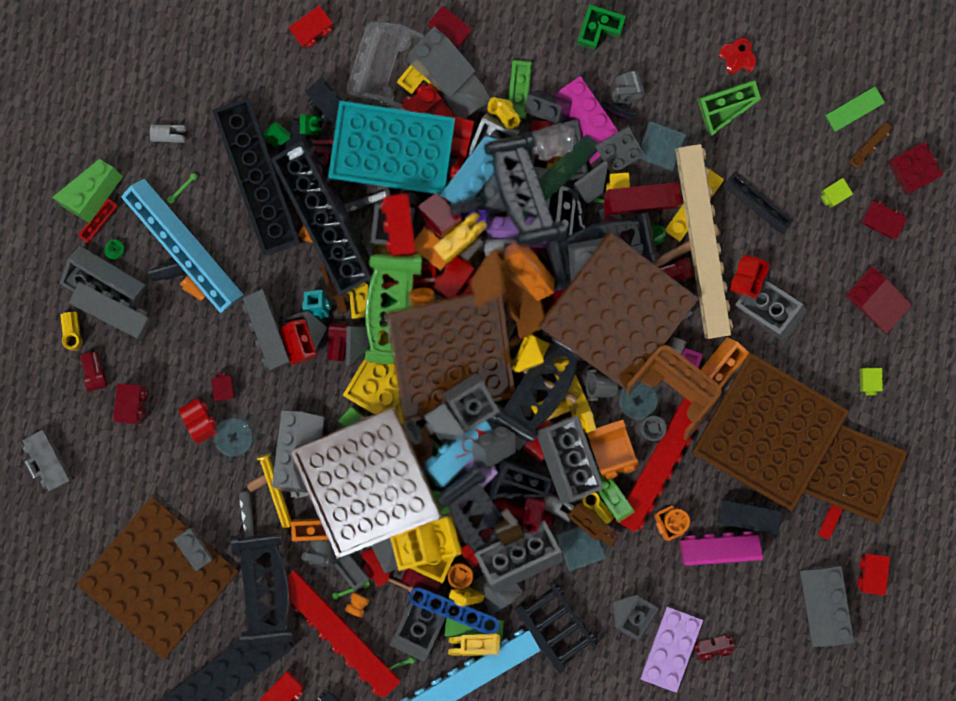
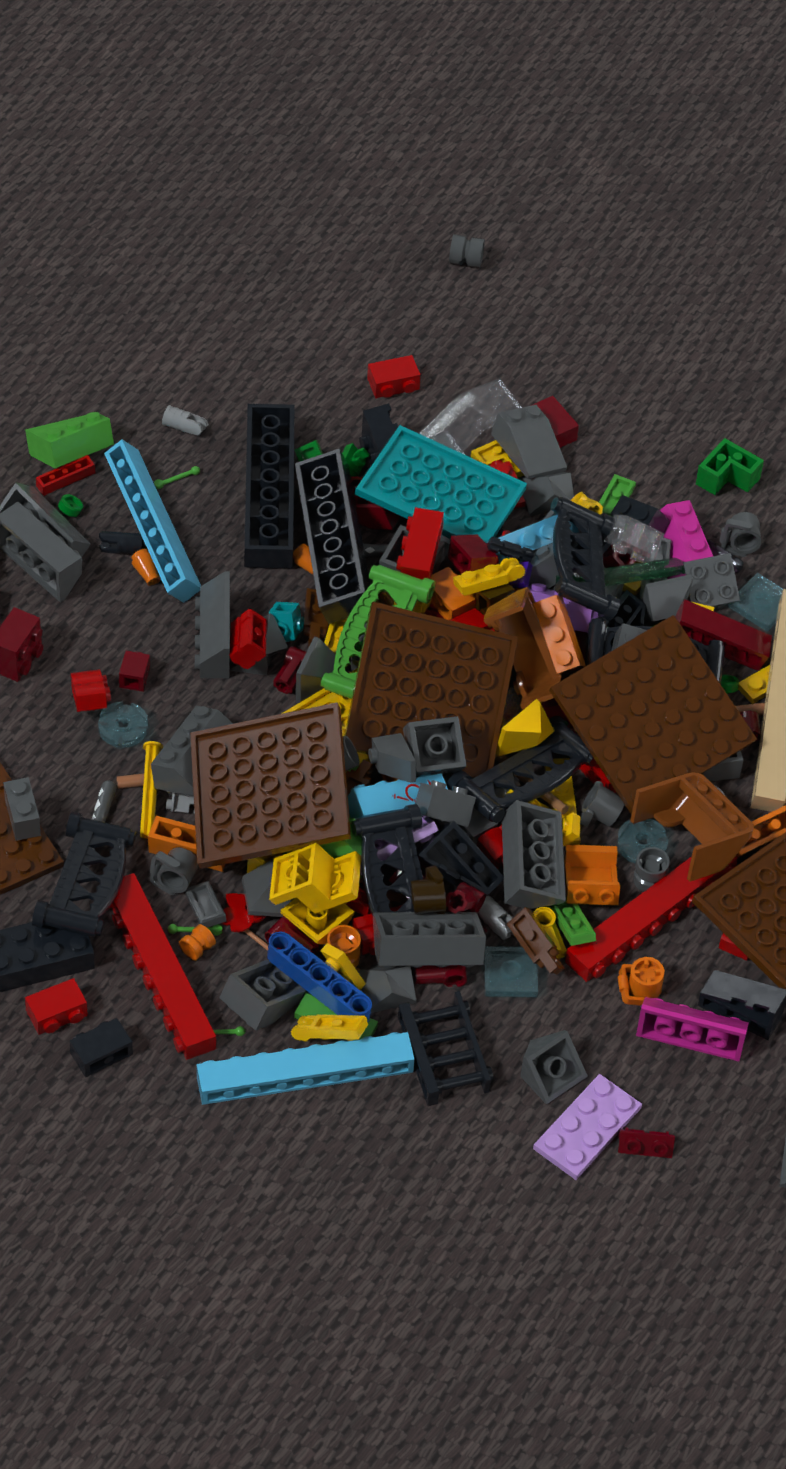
camera: 15 degrees right, 35 degrees down
(461, 136) = (526, 512): red brick -> none

